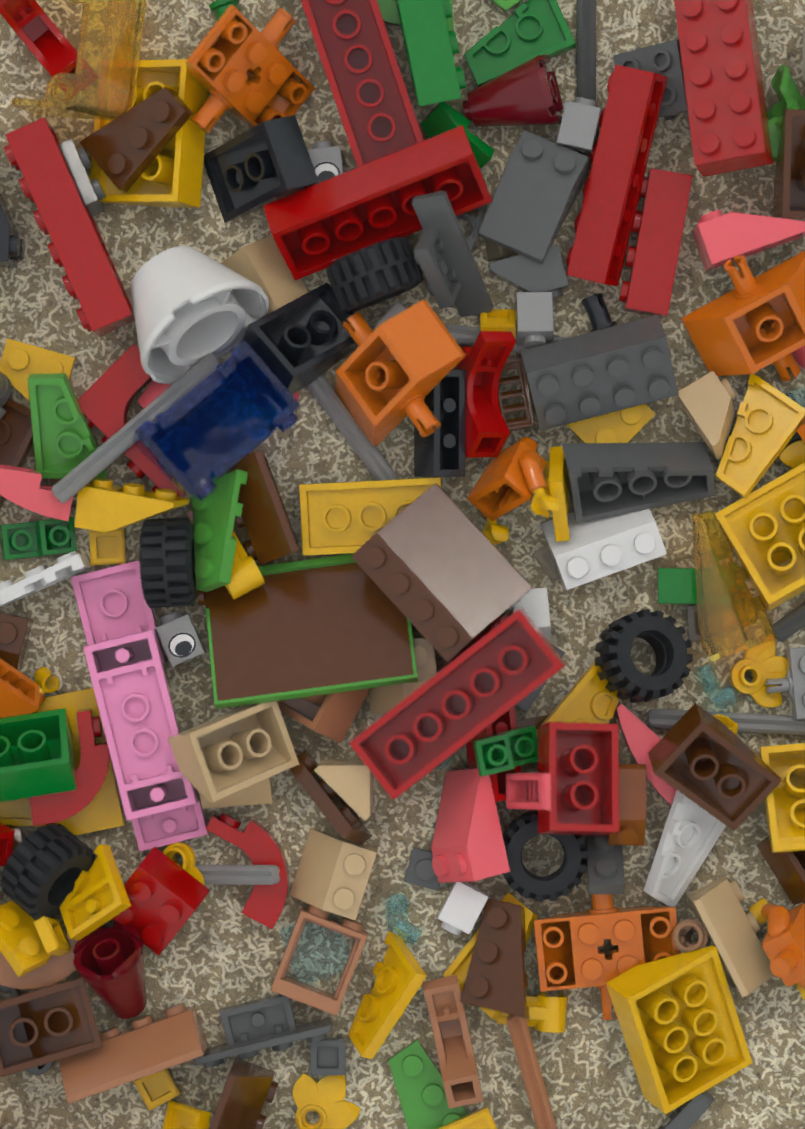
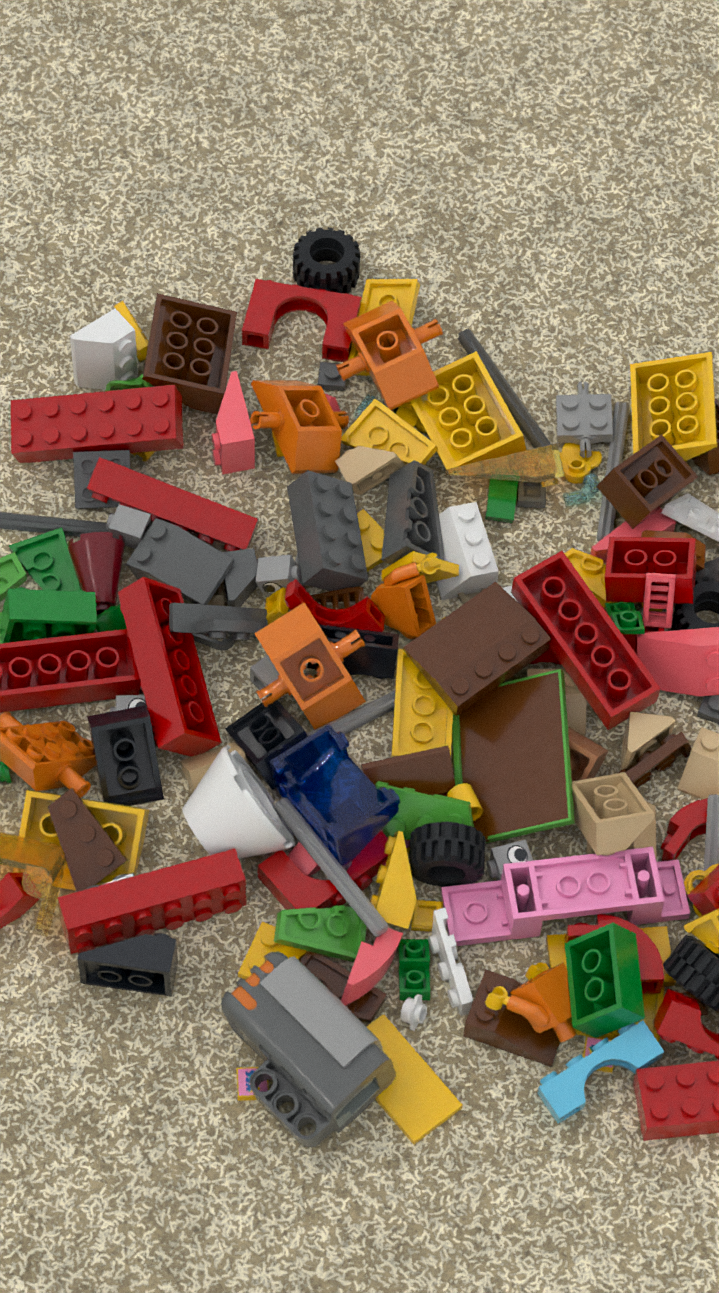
camera: 90 degrees left, 30 degrees down
(374, 274) = (227, 677): black tyre -> none
(597, 312) = (279, 539): black pin -> none
(657, 243) = (233, 489): red brick -> none
(669, 651) = (555, 525): black tyre -> none

